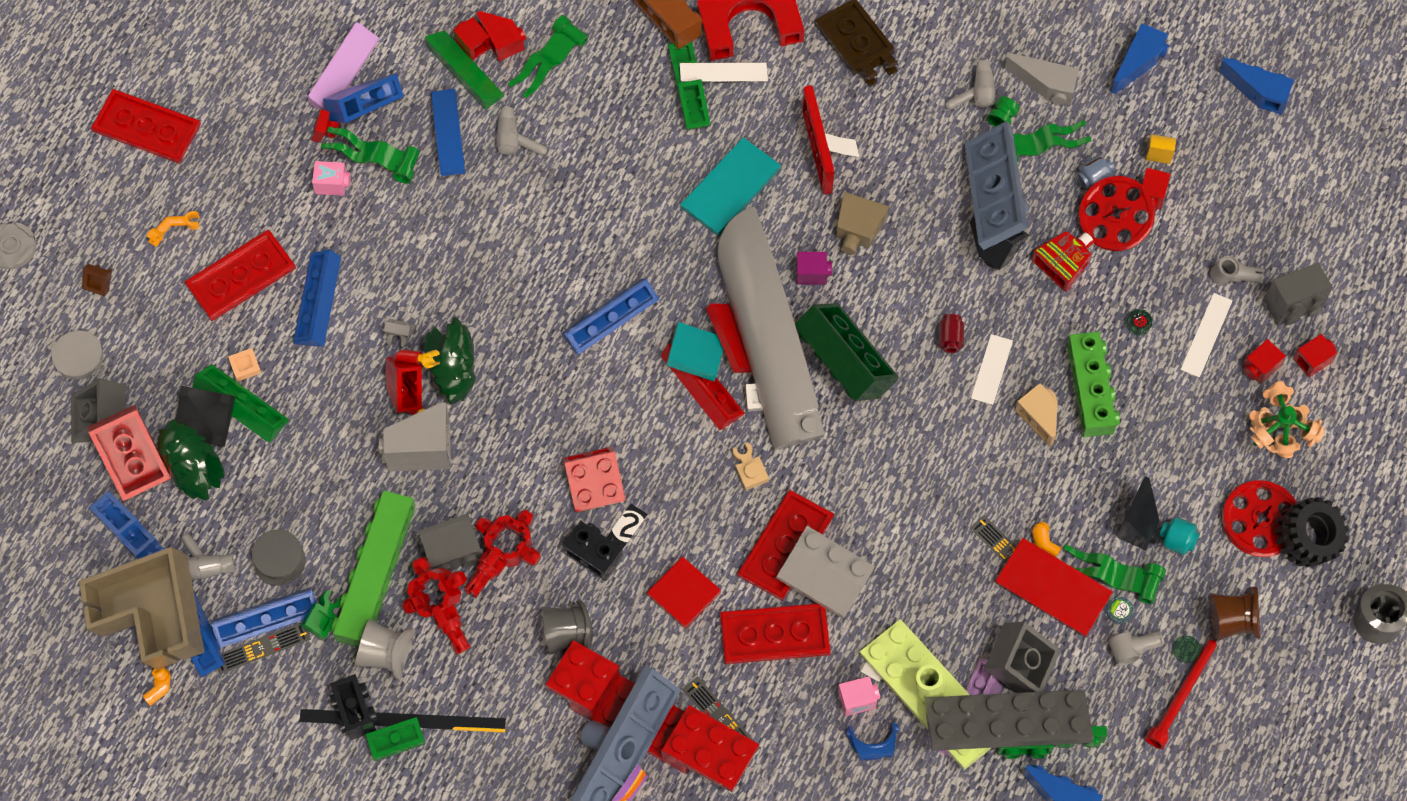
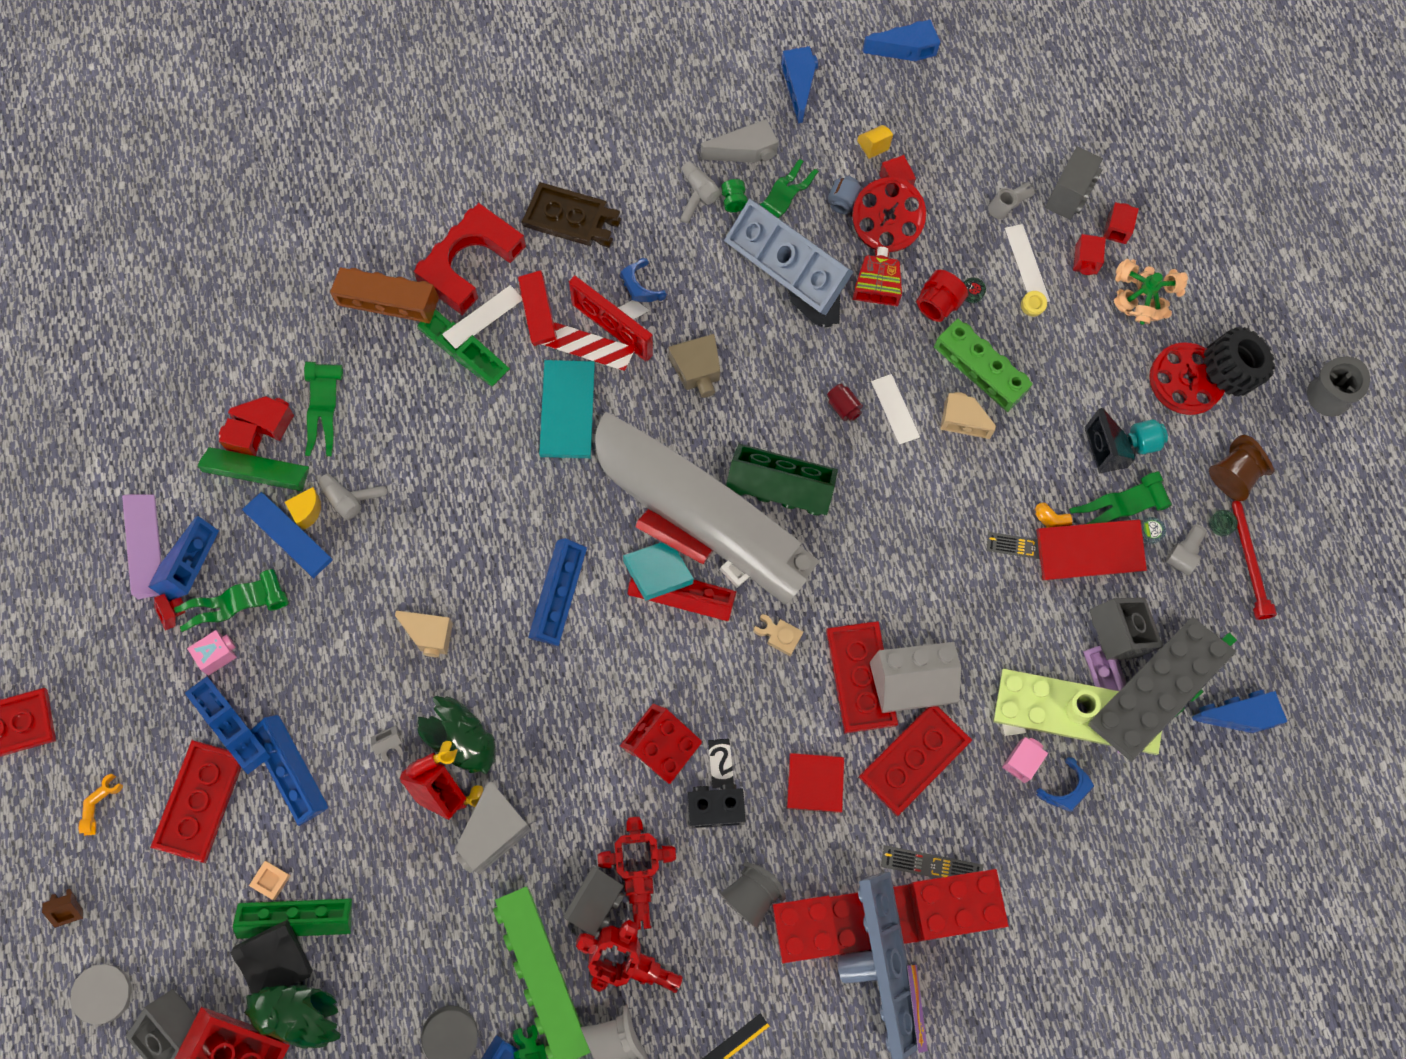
camera: 45 degrees left, 5 degrees up
(300, 236) = (227, 725): none -> blue slope
(476, 122) = (305, 508): none -> yellow brick
(491, 273) = (427, 631): none -> tan slope
(771, 94) = (537, 308): none -> red tile
(785, 149) = (591, 347): none -> sticker
(813, 268) = (692, 429): magenta brick -> none
(858, 134) = (634, 288): none -> blue helmet
(1103, 306) = (941, 295): none -> red piece
(1181, 368) = (1033, 303): none -> light yellow tile

